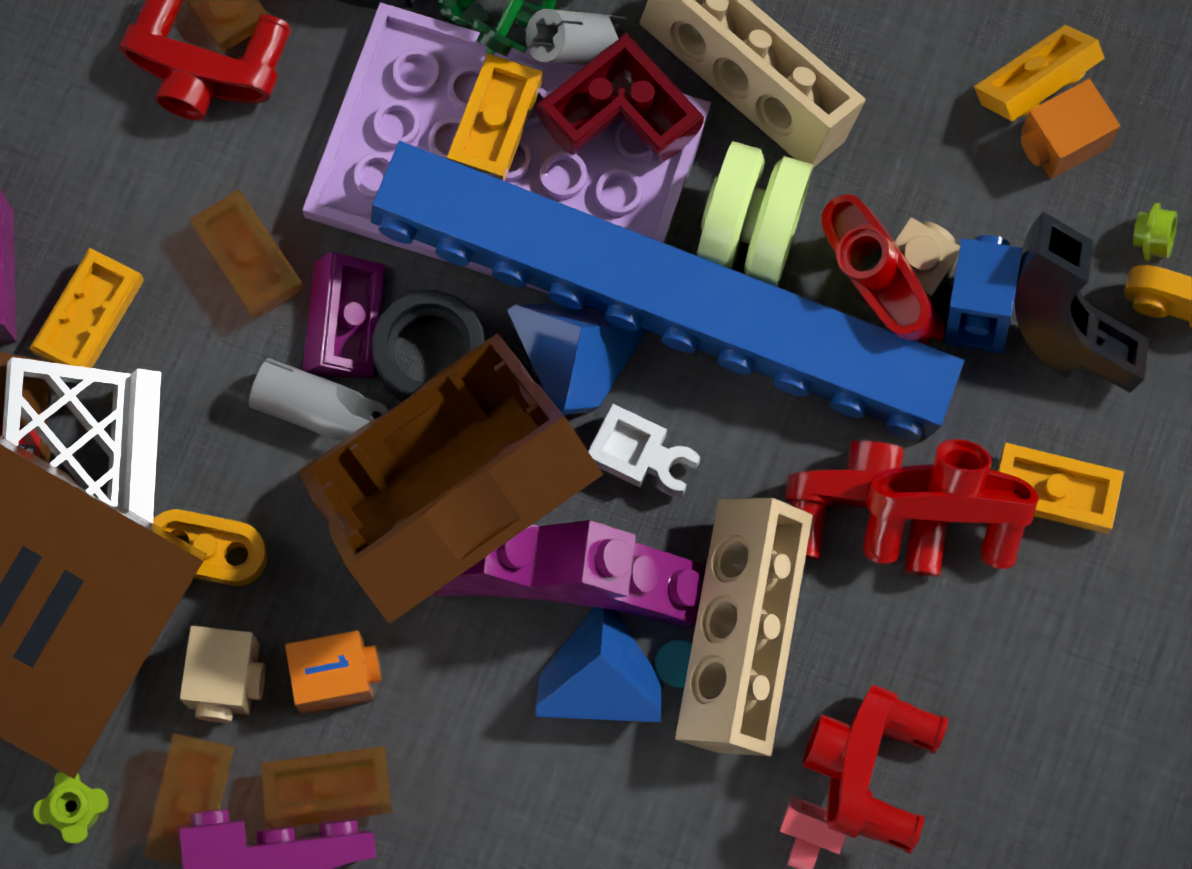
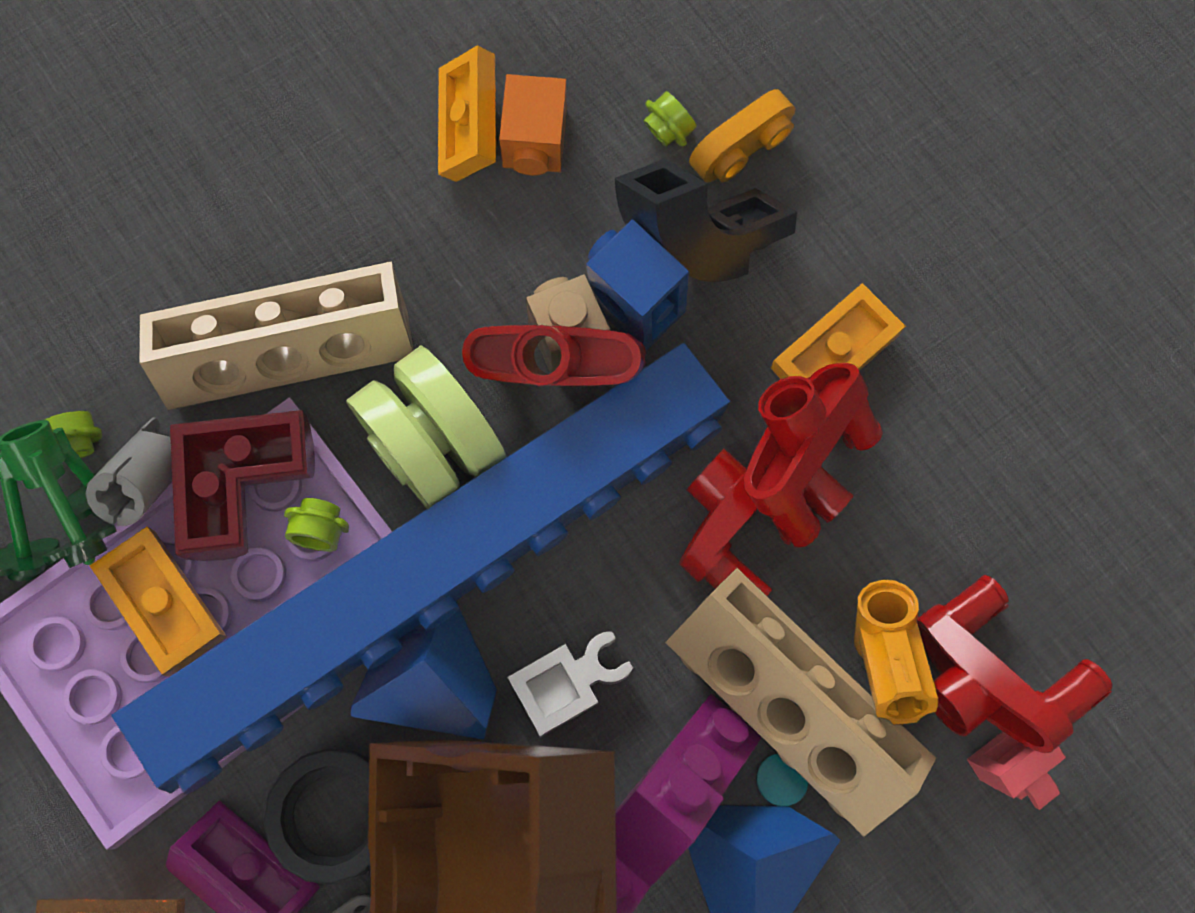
camera: 60 degrees left, 0 degrees up
(626, 187) = (315, 525): none -> lime plate
(830, 672) = (894, 652): none -> light orange piece

